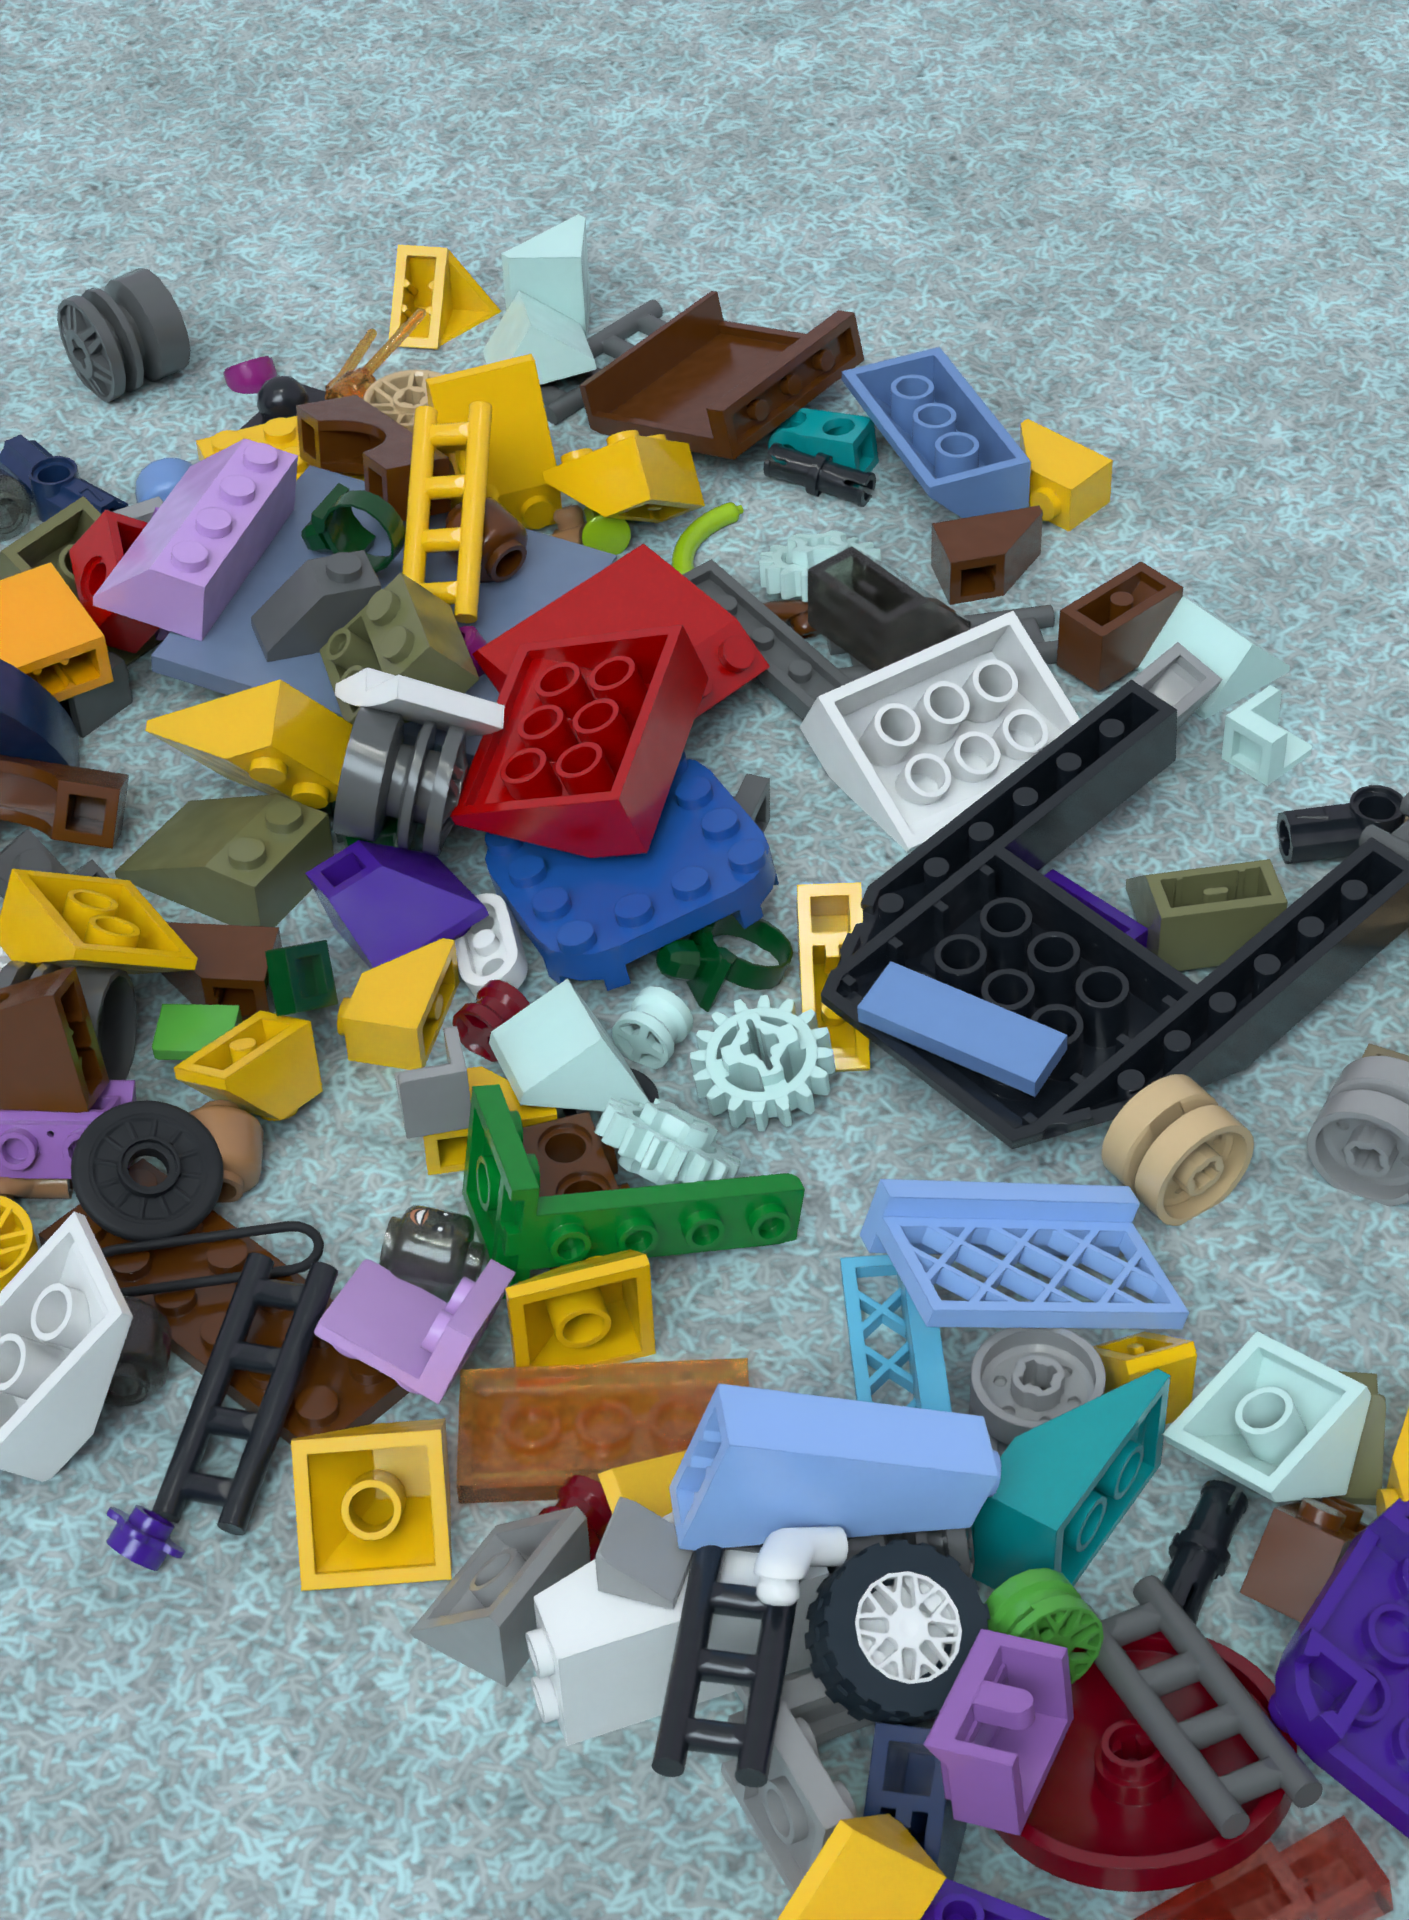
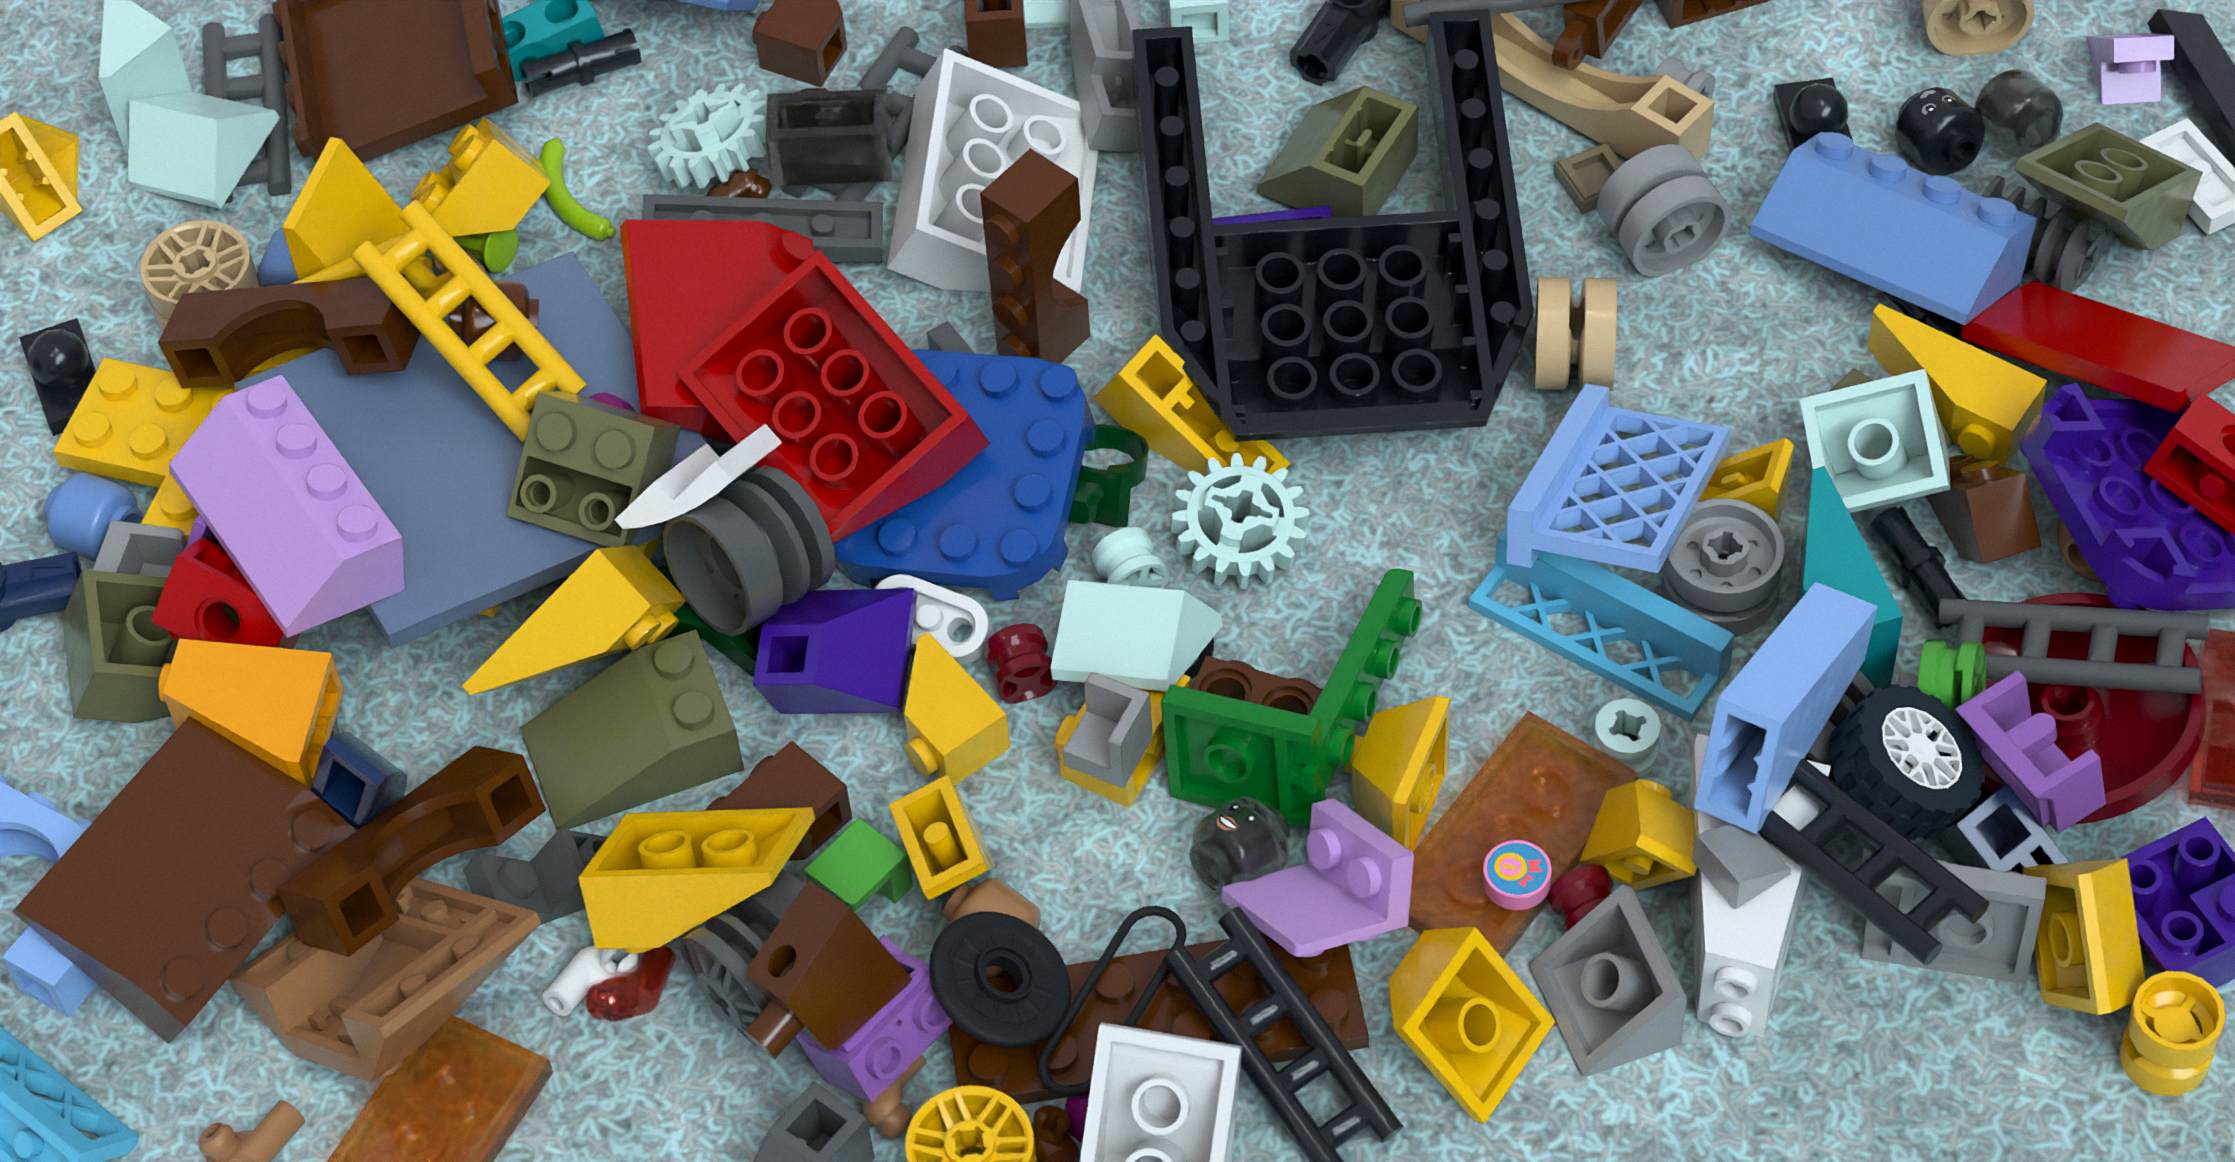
camera: 50 degrees left, 10 degrees up
(301, 977) = (873, 752): dark green slope -> none
(314, 604) = (471, 480): dark grey slope -> none
(338, 530) = (382, 407): dark green piece -> none
(357, 382) = (101, 299): clear orange plant -> none
(553, 1445) = (1517, 875): none -> tile
(665, 1143) = (1286, 628): light aqua gear -> none
(789, 1555) = (1835, 773): white arm -> none
(835, 719) = (1025, 227): none -> reddish brown arch
(962, 1028) = (1365, 372): medium blue tile -> none

